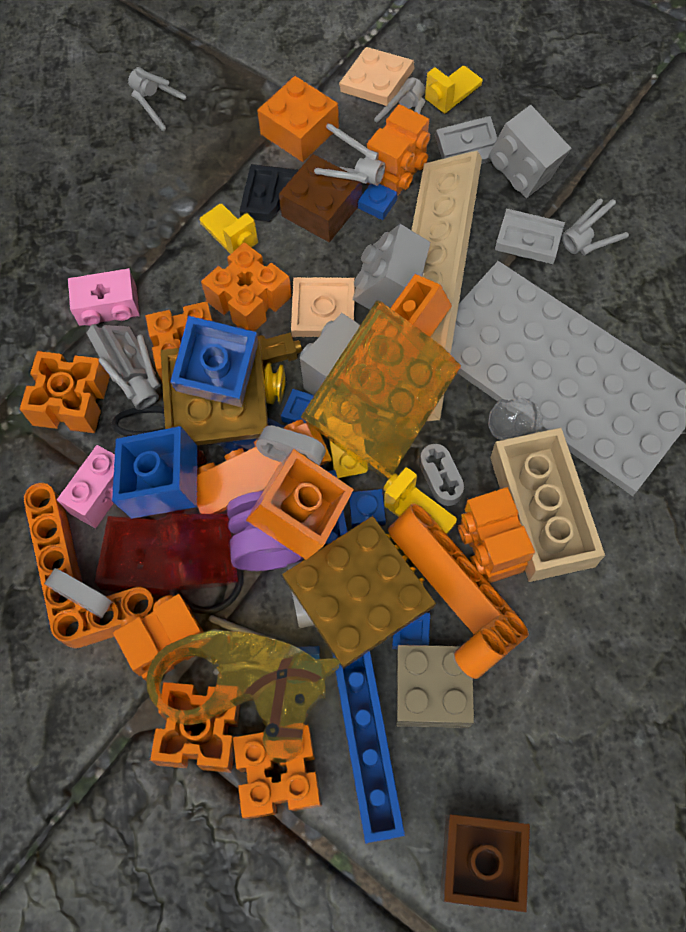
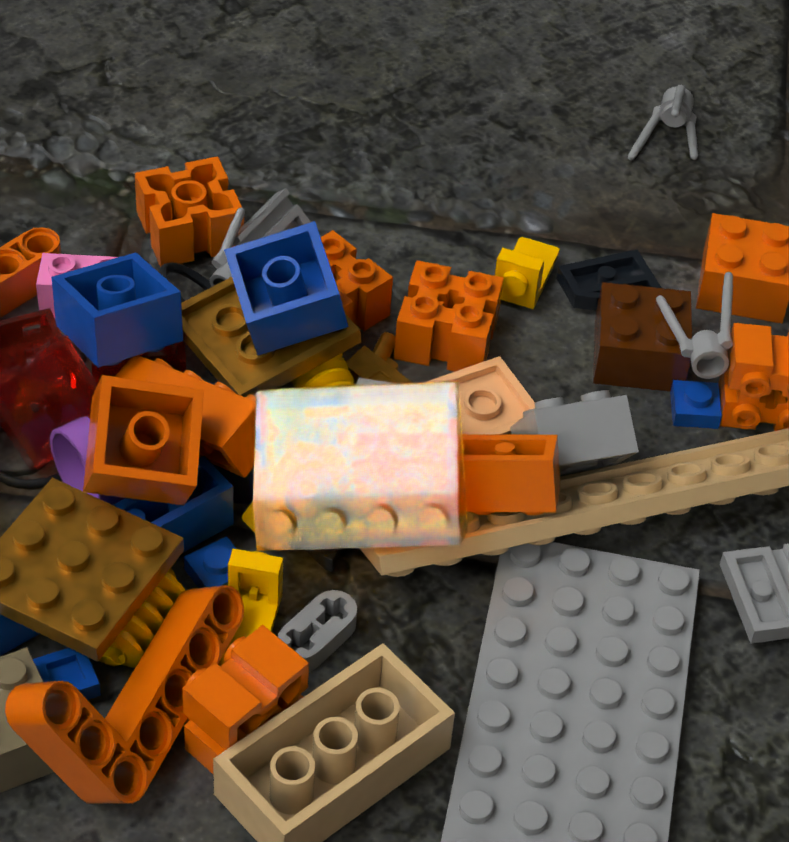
camera: 55 degrees right, 20 degrees down
(103, 297) = (343, 196): bright pink brick -> none
(279, 442) = (212, 377): light grey beam -> none
(514, 418) = (450, 671): clear hair -> none

